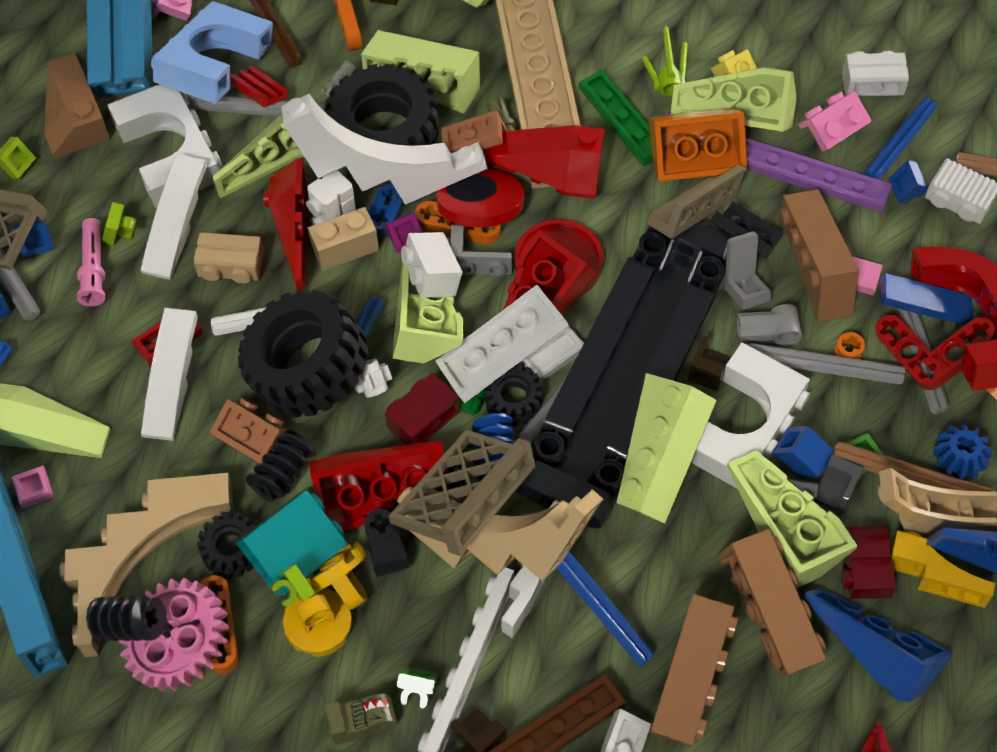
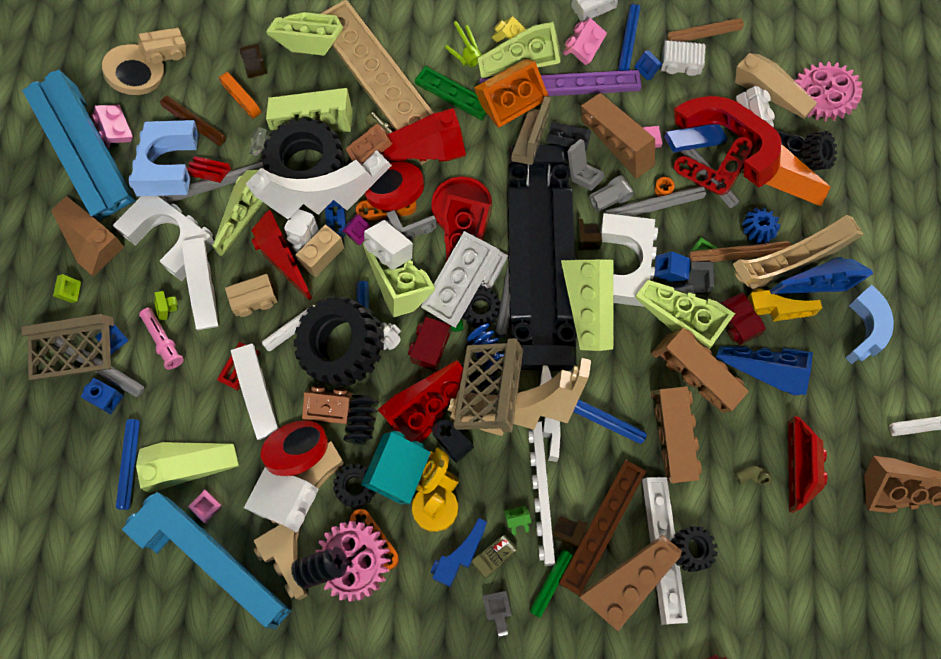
camera: 25 degrees left, 10 degrees up
(128, 514) = (281, 499): none -> white panel
(177, 460) = (294, 448): none -> red piece
(292, 702) = (447, 567): none -> blue slope
(296, 584) = (416, 495): lime tile -> none

